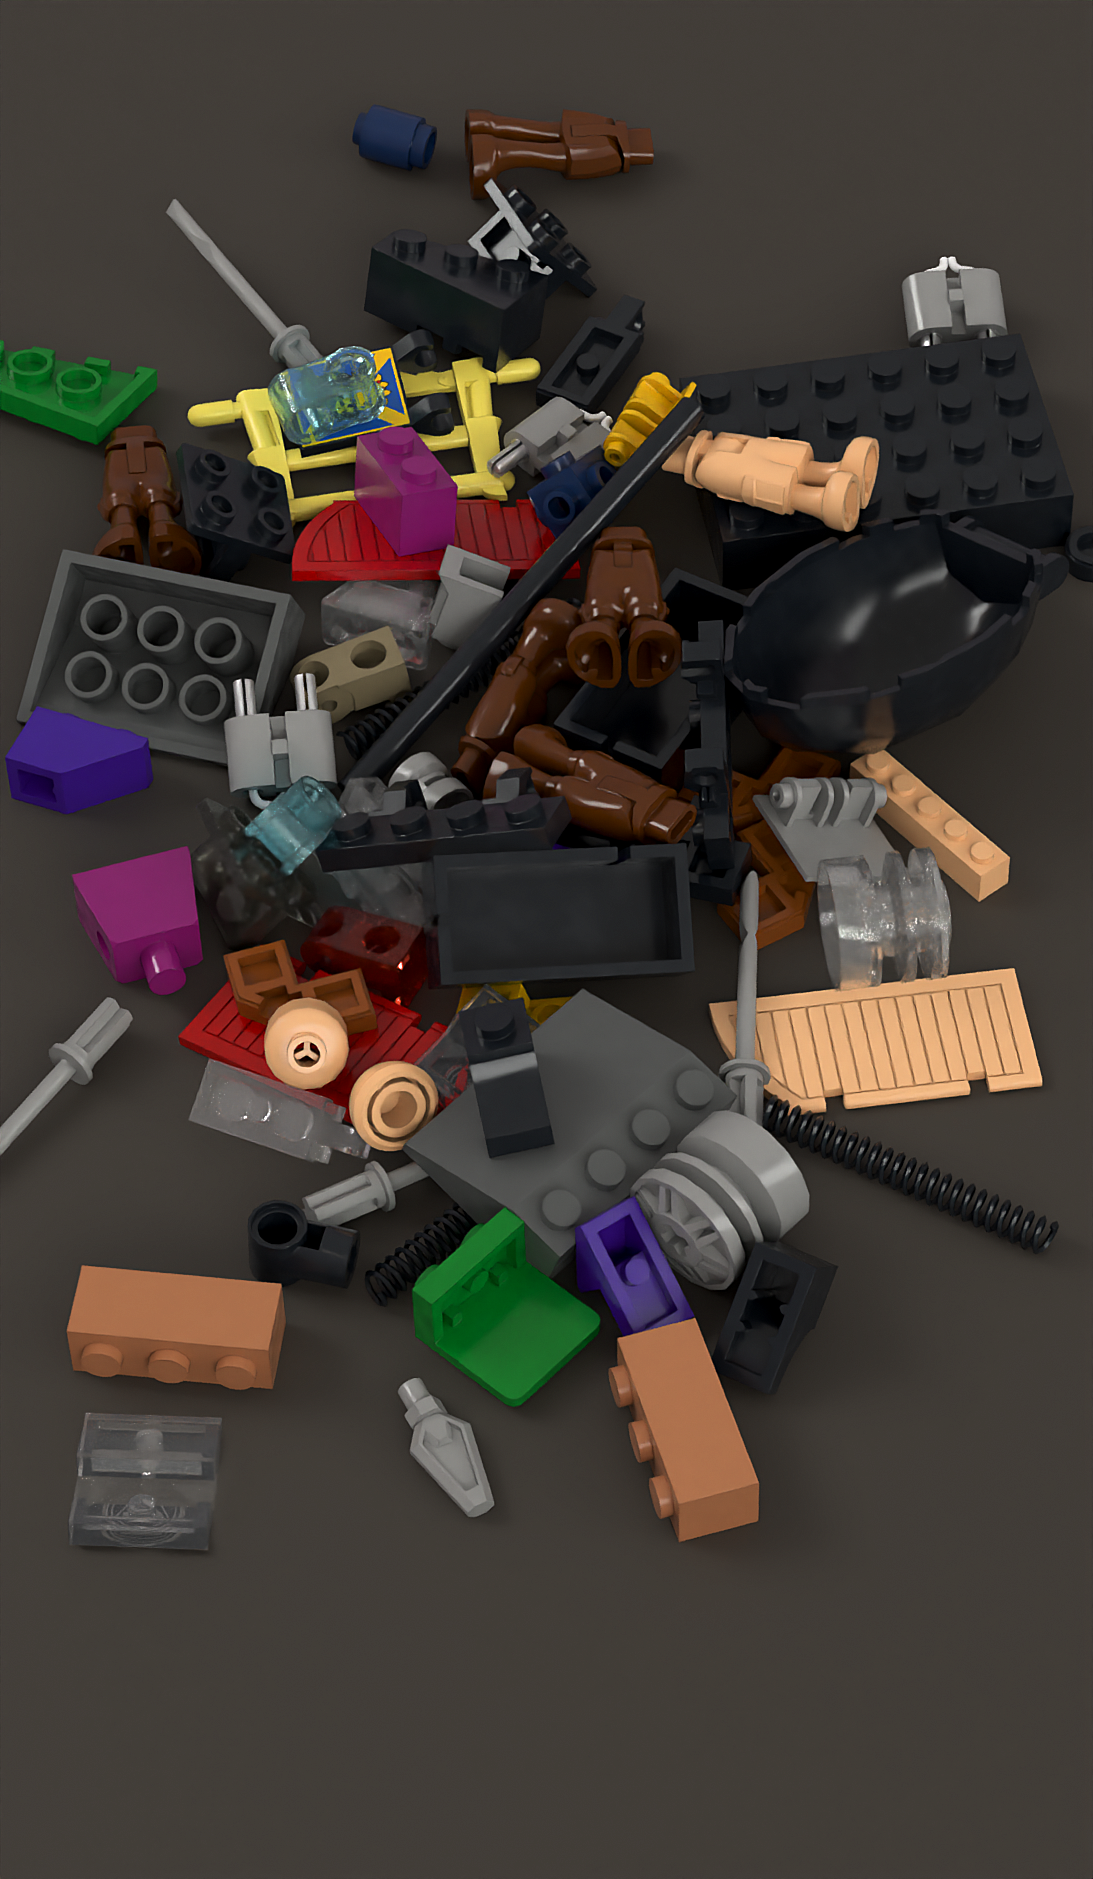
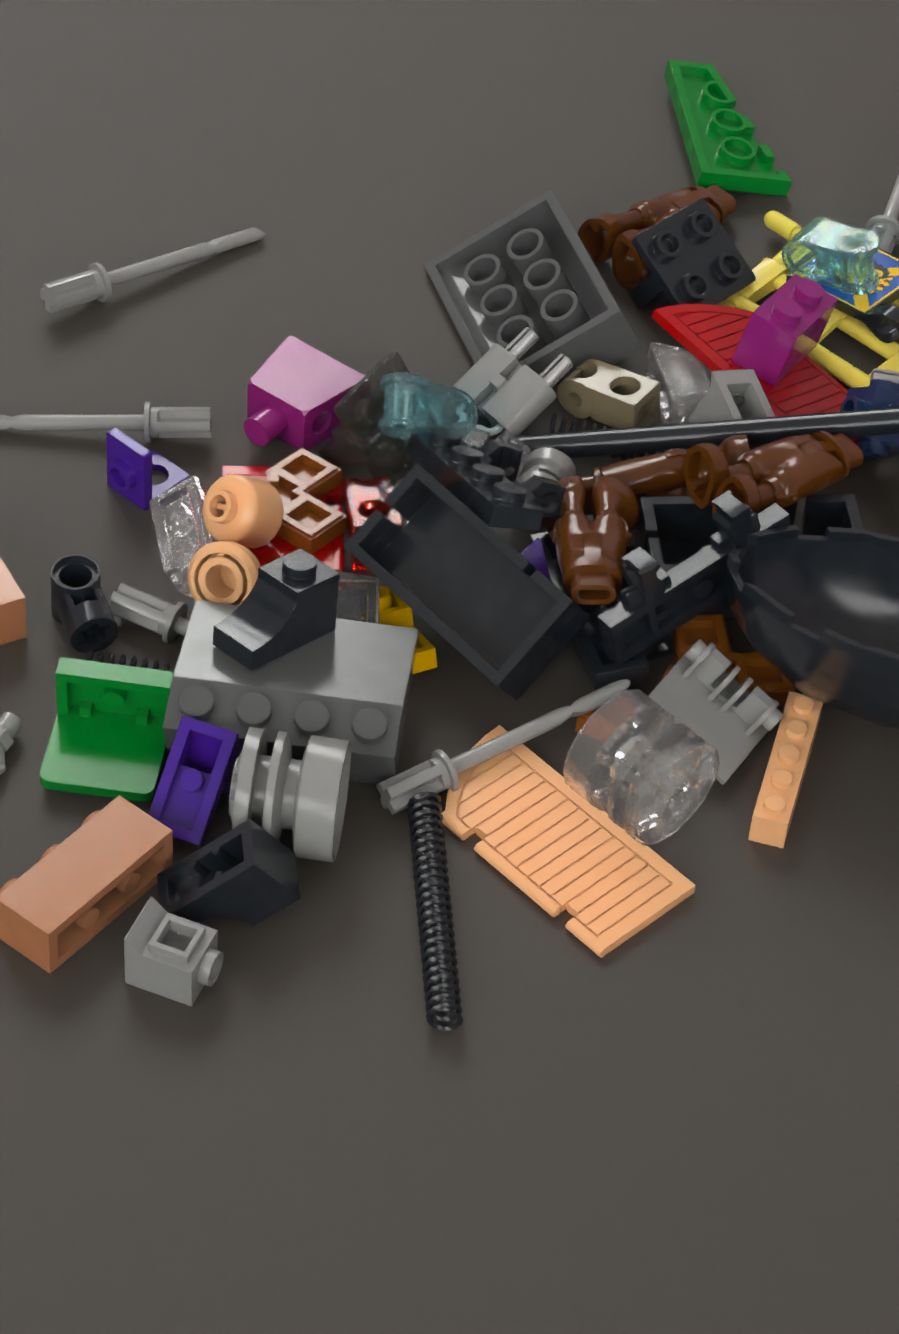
camera: 50 degrees right, 5 degrees down
(75, 762) = (404, 301): dark purple slope -> none
(143, 1108) = (132, 466): none -> dark purple bracket
(834, 1402) = (171, 954): none -> light grey window

